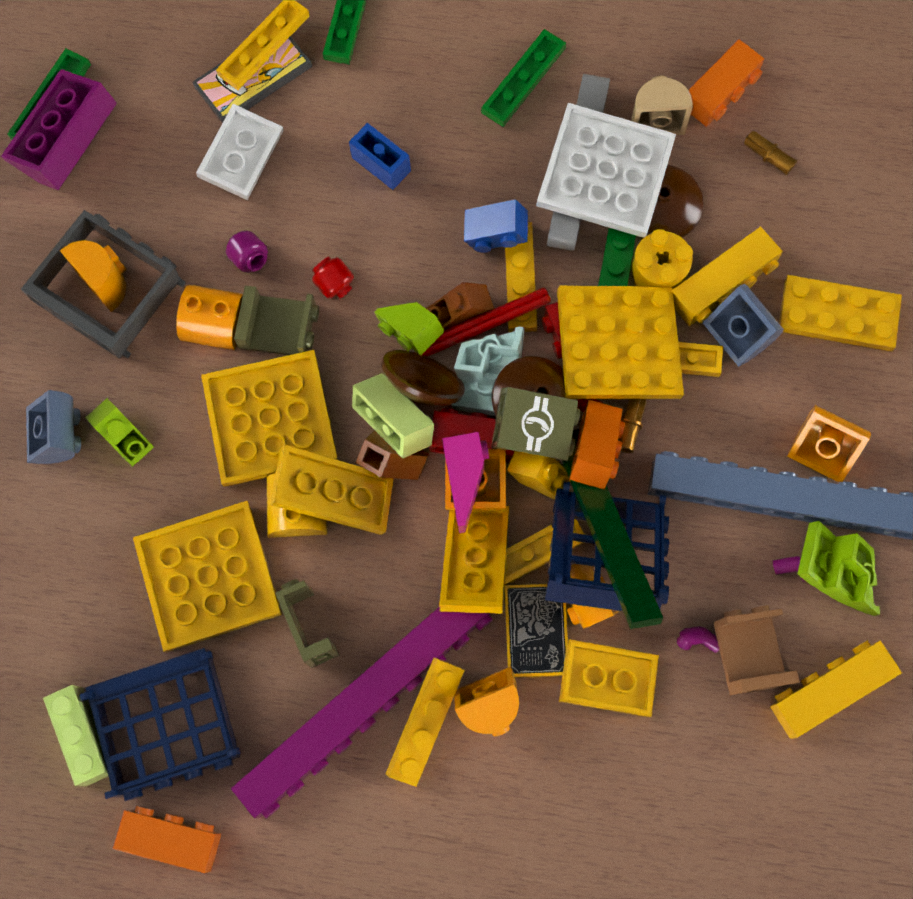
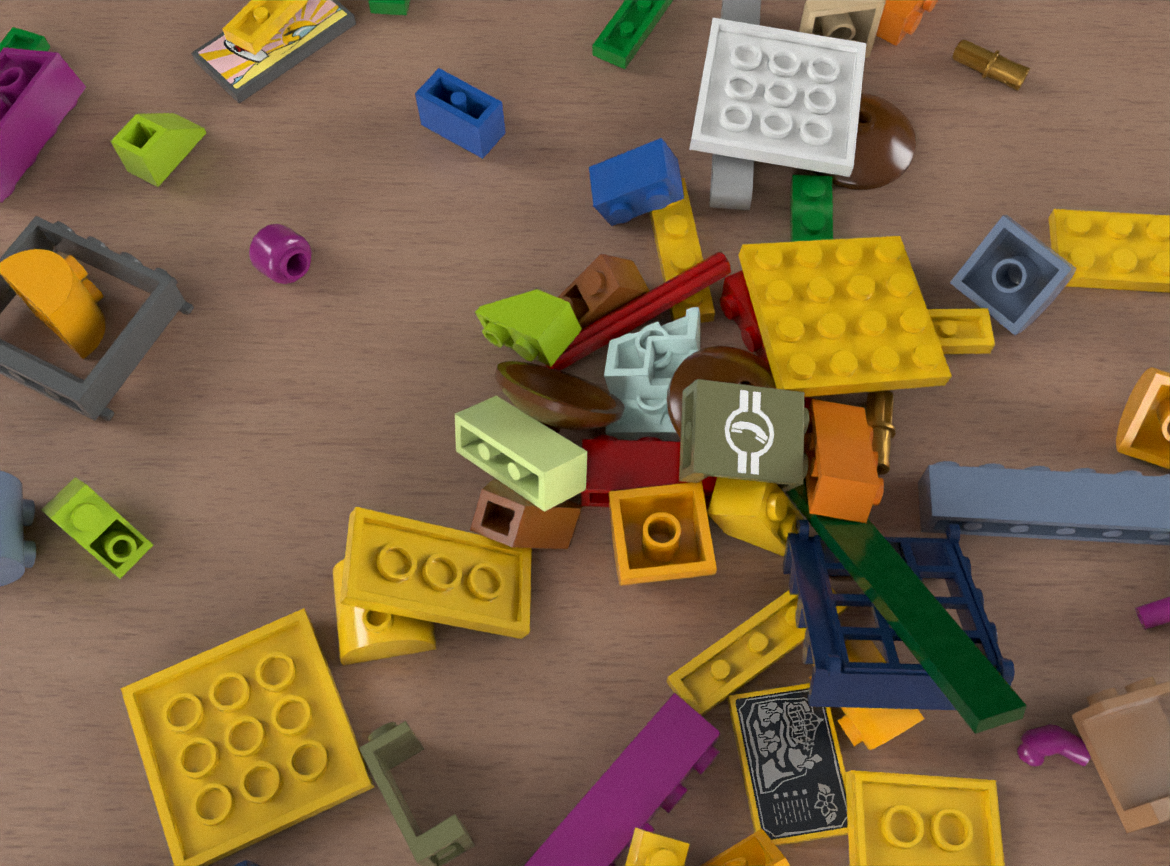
camera: 10 degrees left, 10 degrees down
(166, 156) = (156, 144): none -> lime slope
(208, 316) = (231, 348): light orange brick -> none
(239, 151) = (262, 129): white plate -> none
(264, 408) = (311, 467): yellow plate -> none
(275, 323) = (329, 348): olive panel -> none
(332, 278) = (409, 276): red head -> none
(465, 469) = (643, 506): dark pink slope -> none
(475, 563) = (680, 663): yellow plate -> none
(664, 249) = (878, 203): yellow brick -> none
(717, 280) = (966, 217): yellow brick -> none

